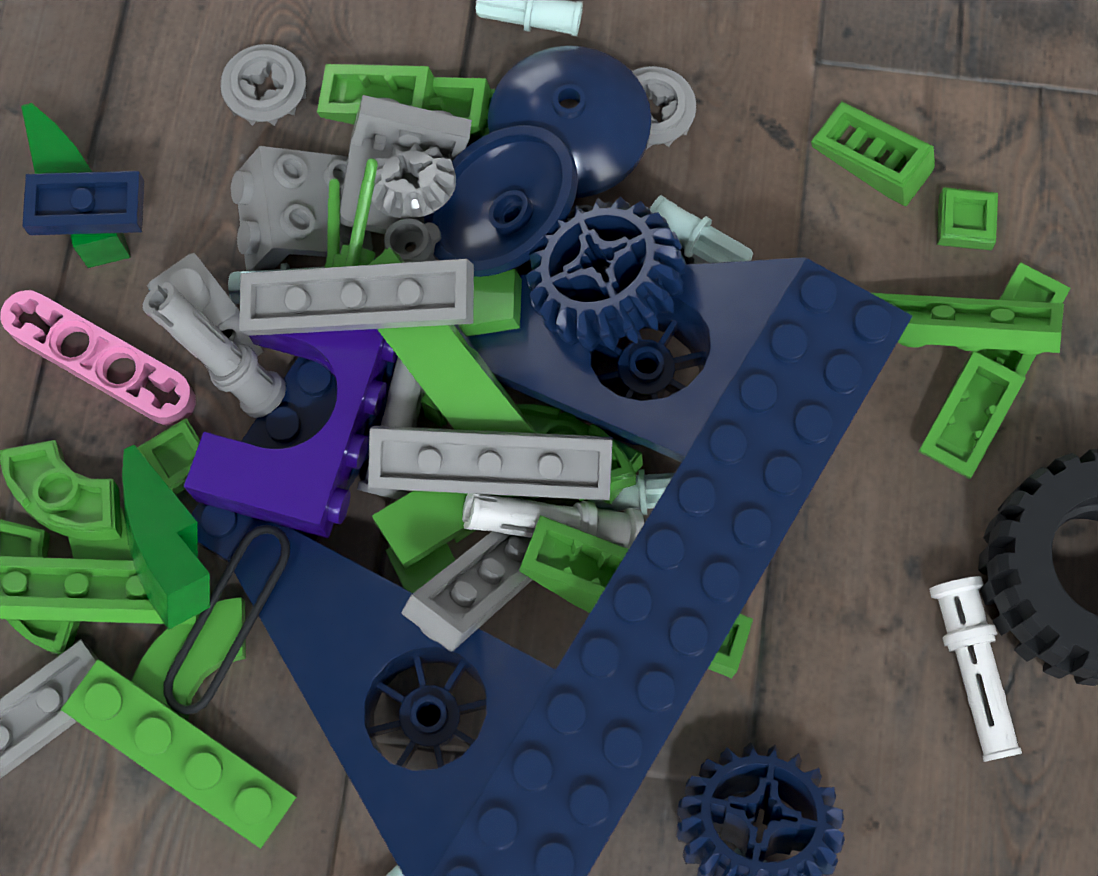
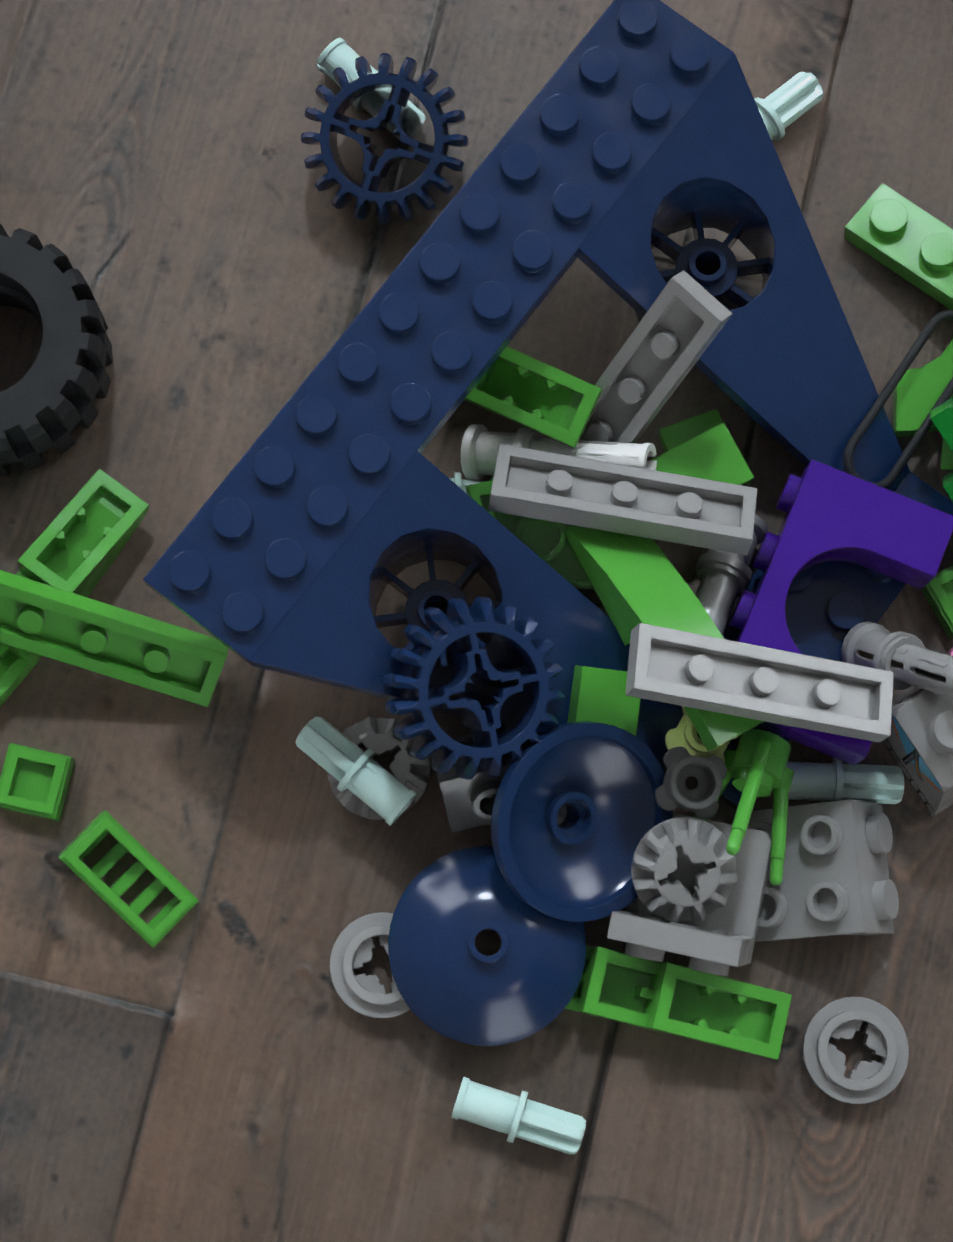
camera: 175 degrees left, 5 degrees up
(997, 739) = (135, 305): white pin -> none

